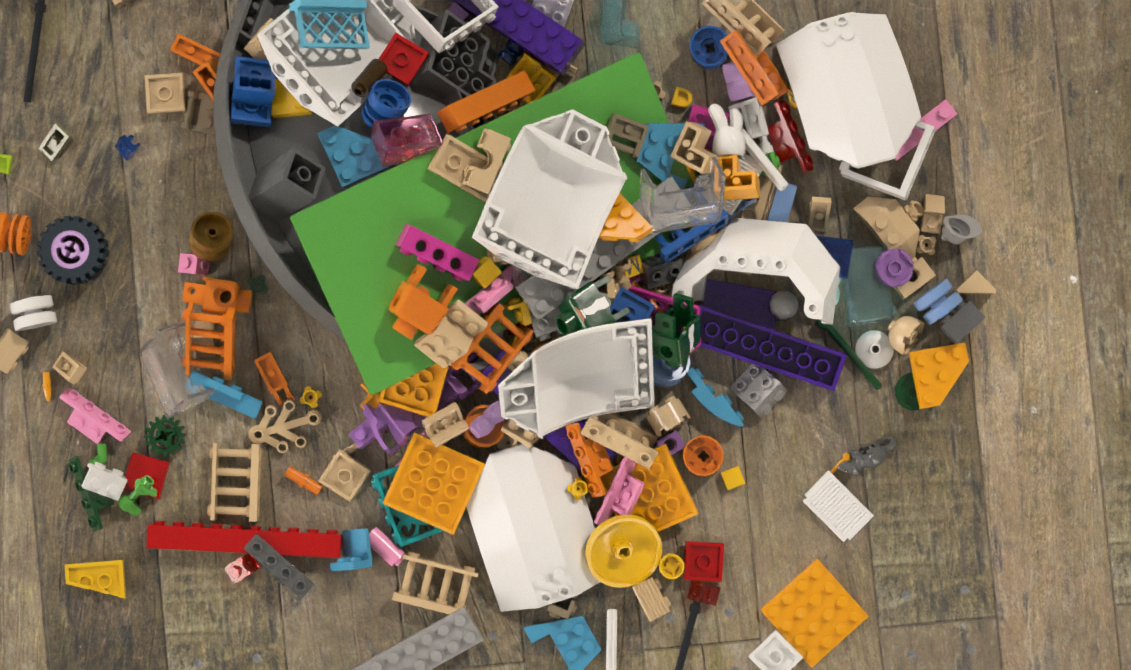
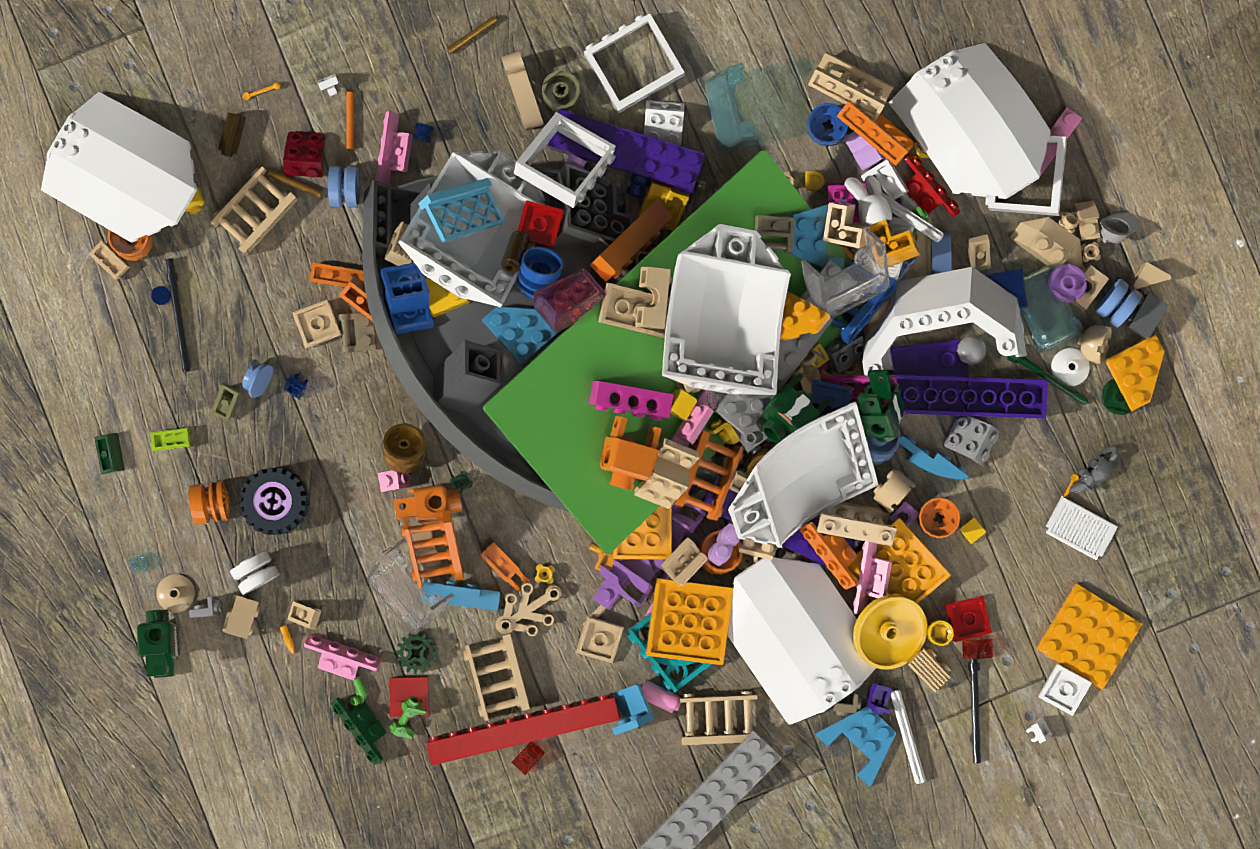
camera: 15 degrees left, 0 degrees up
(24, 22) = (161, 295): none -> clear blue tile
(91, 128) = (257, 378): none -> medium blue hat
(100, 576) = (394, 806): yellow wing -> none
(104, 481) = (372, 714): white bracket -> none
(275, 563) = (564, 745): dark grey bracket -> none
(303, 480) = (562, 656): orange pin -> none
(583, 488) = (832, 581): yellow plate -> none
(594, 612) = (879, 698): none -> dark purple bracket

